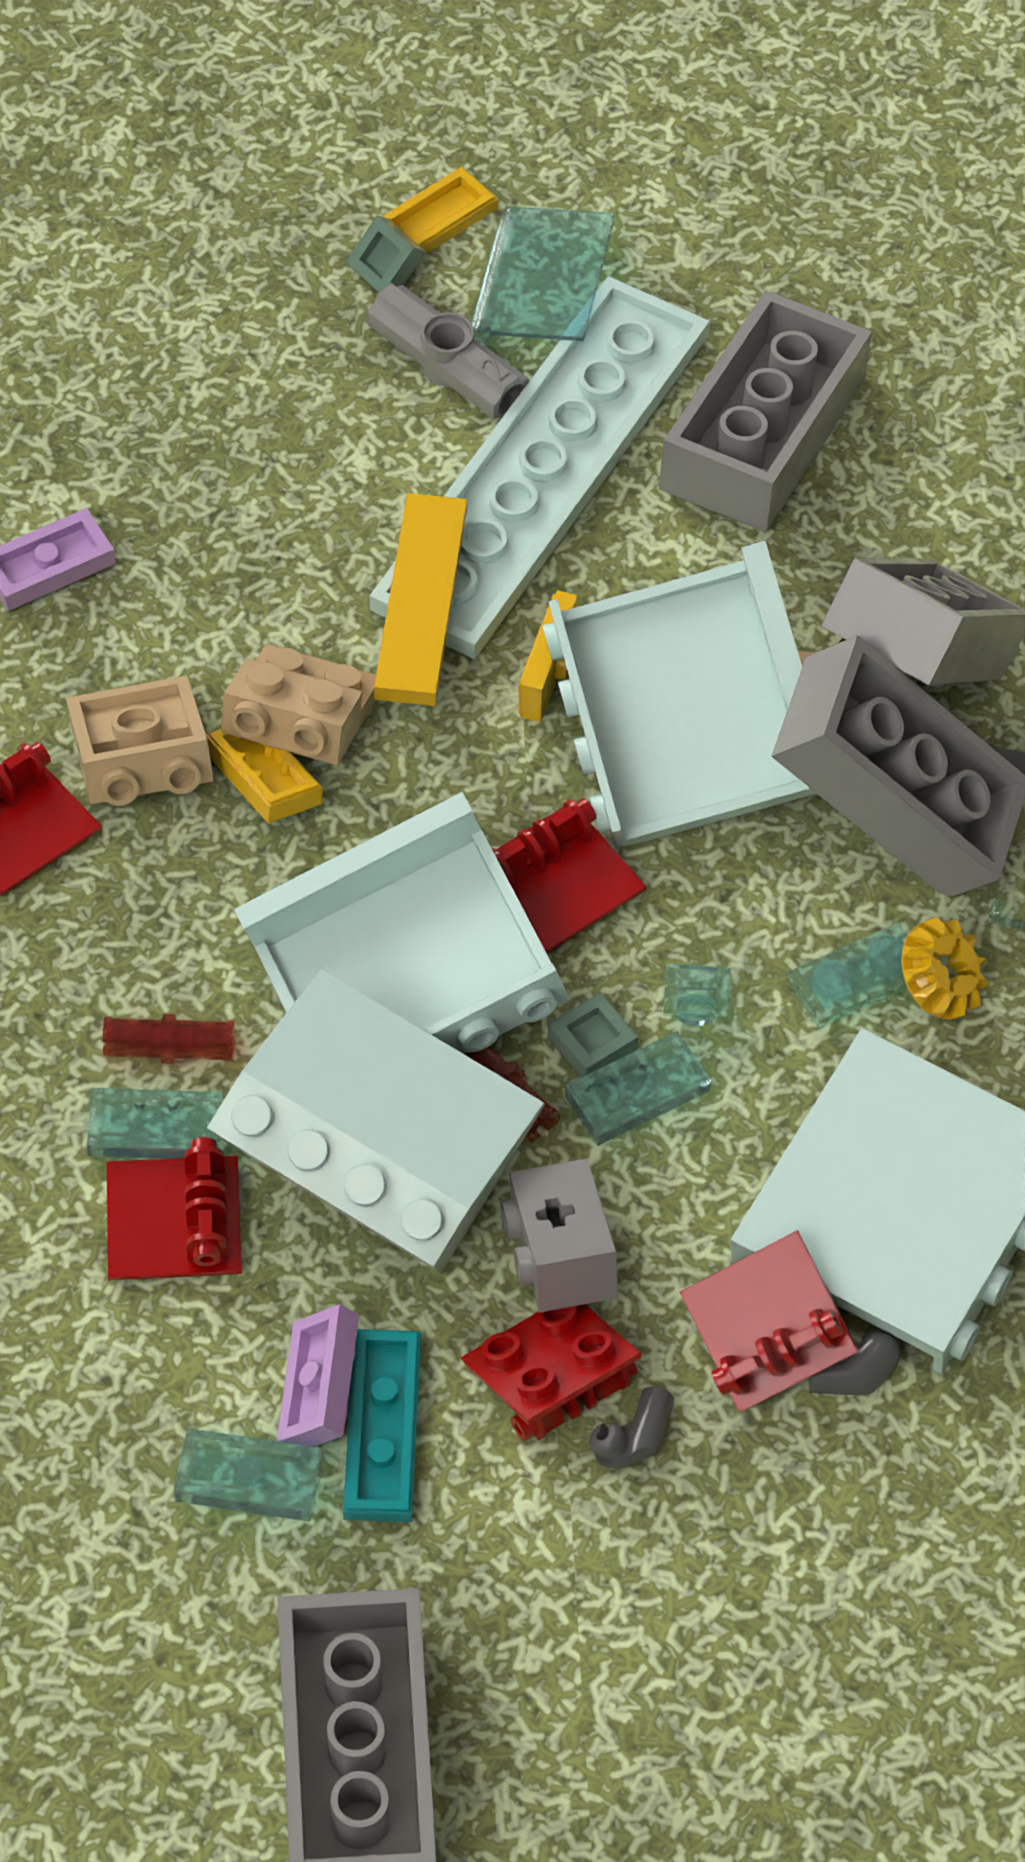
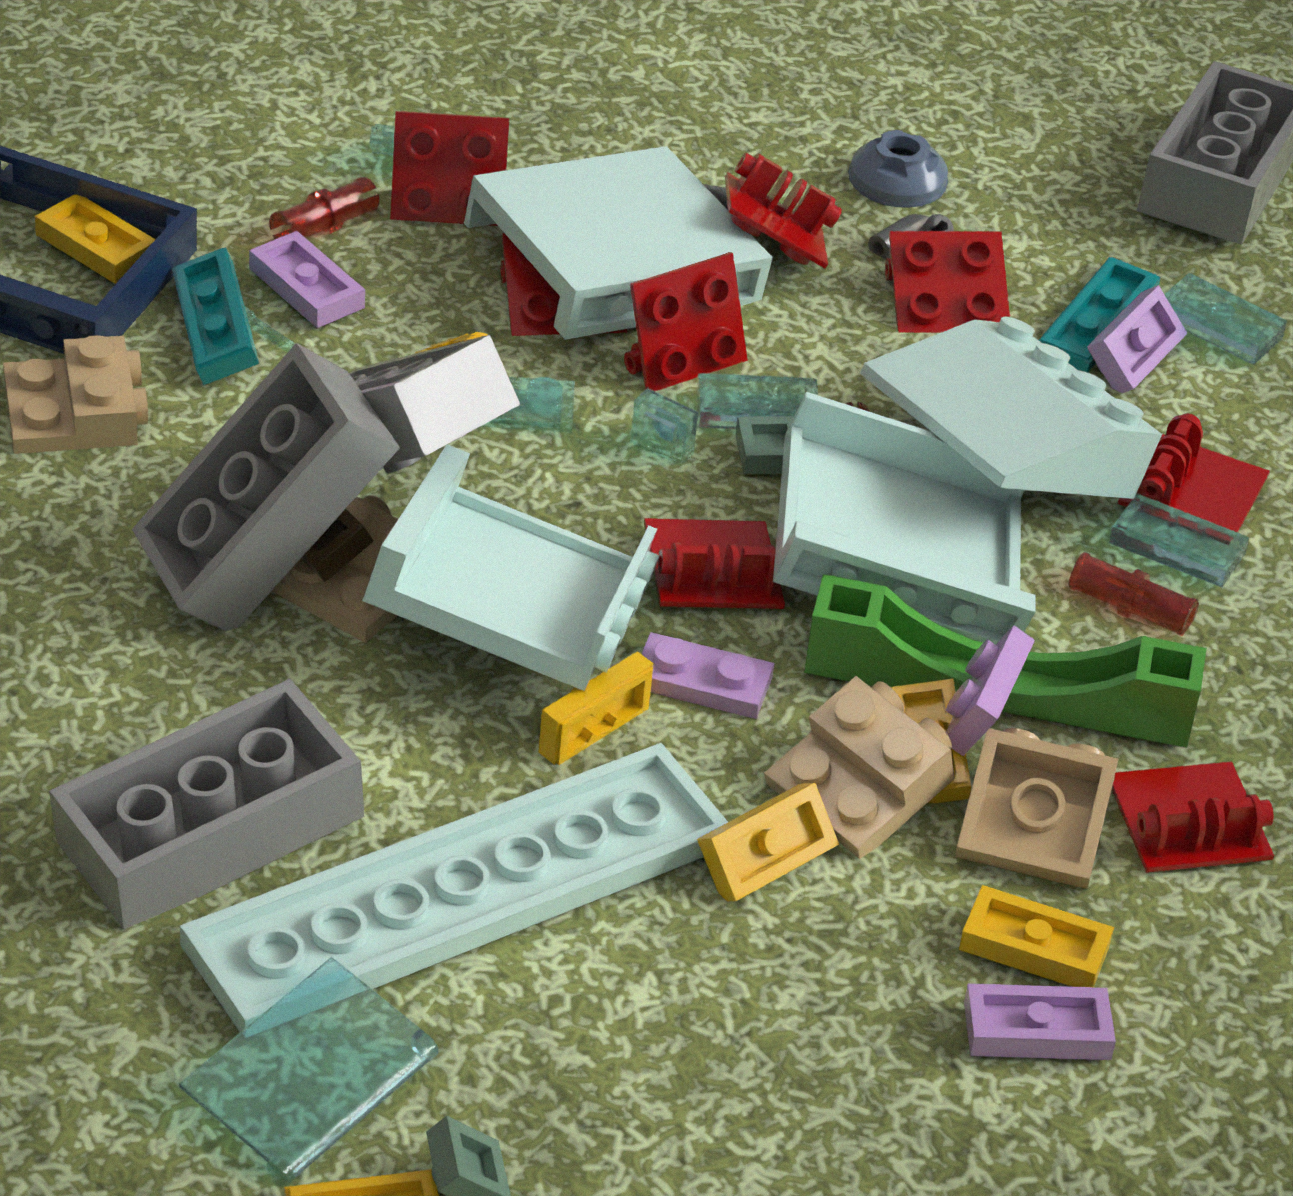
camera: 155 degrees left, 15 degrees down
(83, 629) = (1036, 938): none -> yellow plate
(126, 887) = (1126, 689): none -> bright green arch
(228, 793) = (983, 697): none -> lavender plate
(340, 598) = (768, 841): none -> yellow plate
(420, 600) = (687, 787): yellow tile -> none
(446, 350) = (478, 1032): light grey piece -> none
(492, 757) = (707, 675): none -> lavender plate
(561, 1235) = (896, 310): light grey brick -> none
(709, 1569) = (897, 178): none -> sand blue piece
(761, 1106) = (687, 323): none -> red hinge

